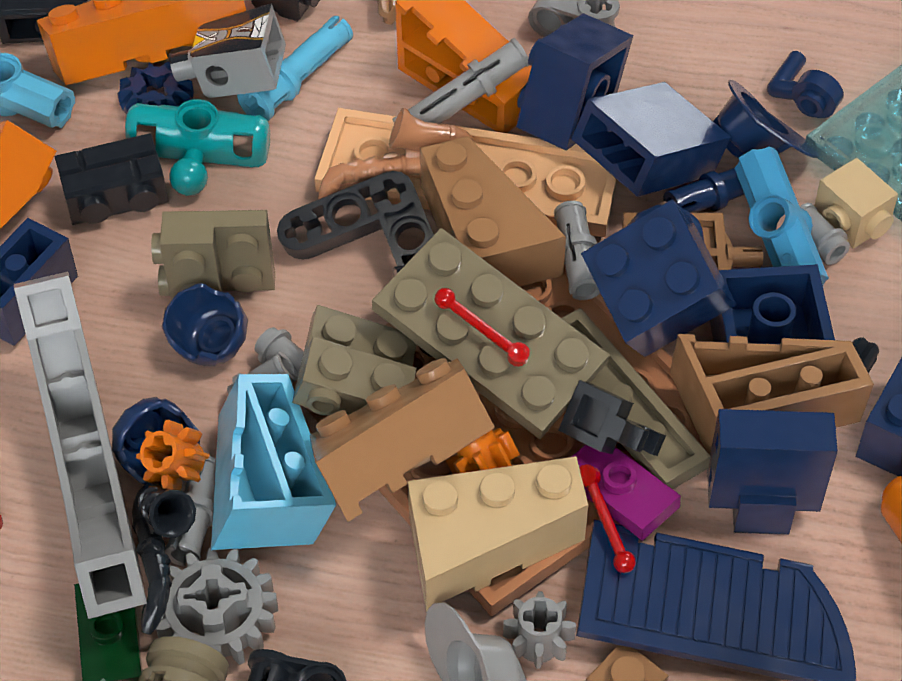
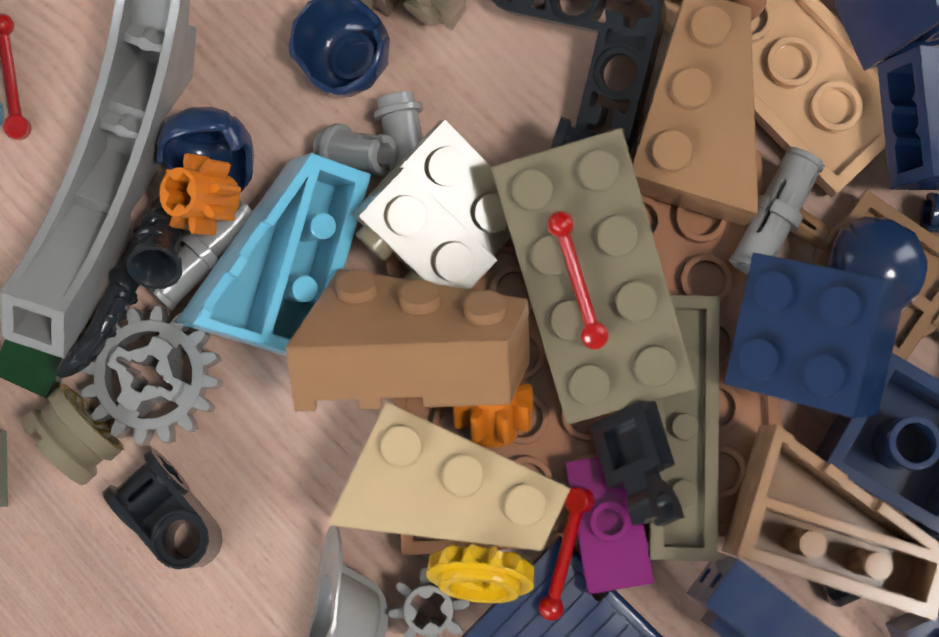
camera: 40 degrees right, 30 degrees up
(580, 556) = (480, 574): none -> yellow gear

